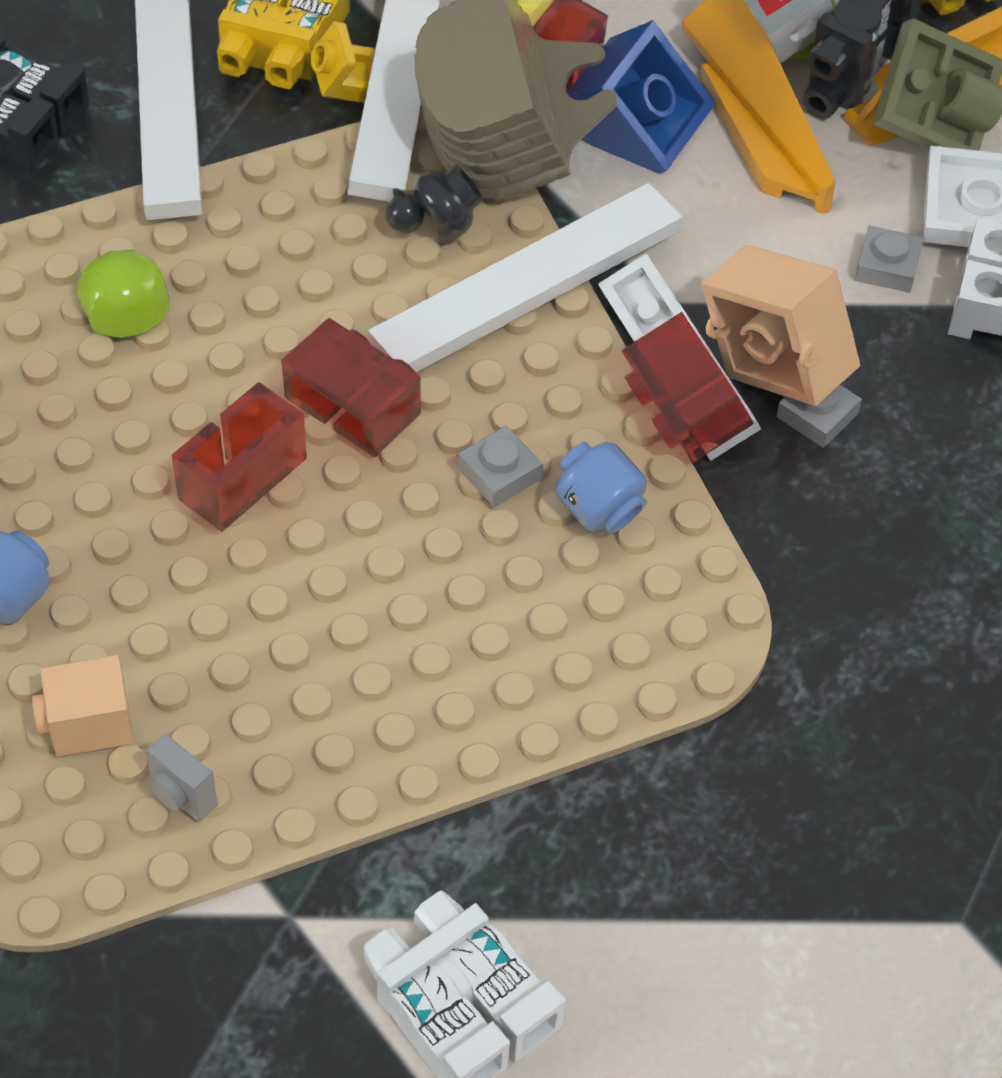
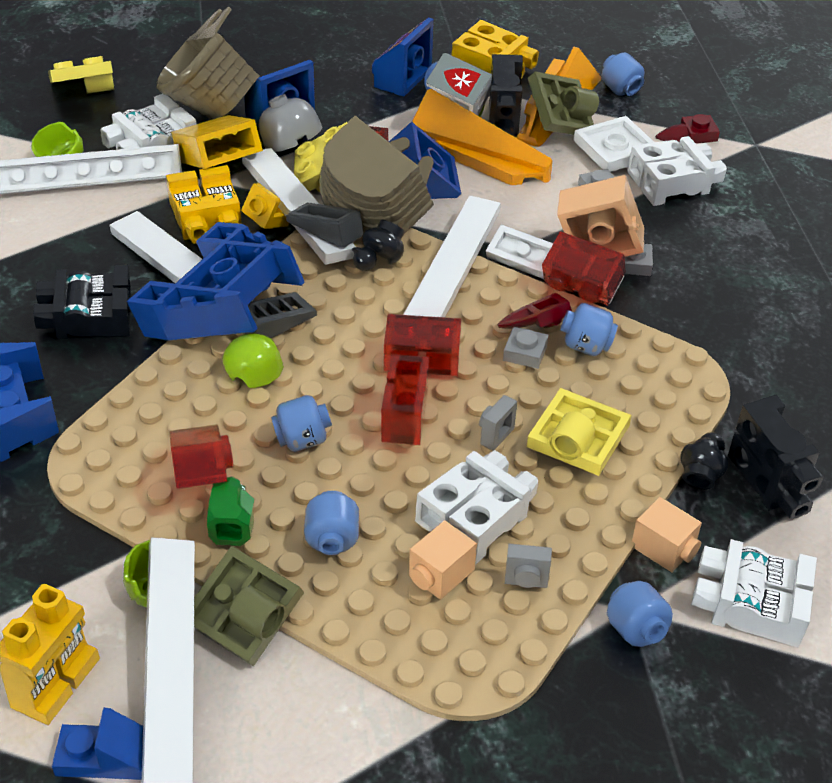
camera: 35 degrees left, 10 degrees down
(90, 418) = (301, 423): none -> medium blue head
(157, 157) = (218, 289): none -> blue wedge
(180, 226) = (270, 318): none -> dark grey slope
(204, 653) = (477, 499): none -> white hips
(273, 925) = (639, 611): none -> medium blue head
(340, 557) = (498, 422): none -> light grey plate
(394, 139) = (330, 223): none -> dark grey slope
(420, 844) = (667, 535): none -> light nougat brick
(440, 631) = (579, 431): none -> light yellow plate
(558, 422) = (543, 312): none -> dark red plate
(579, 770) = (704, 461): none -> black animal
(663, 842) = (775, 457): none -> black hips

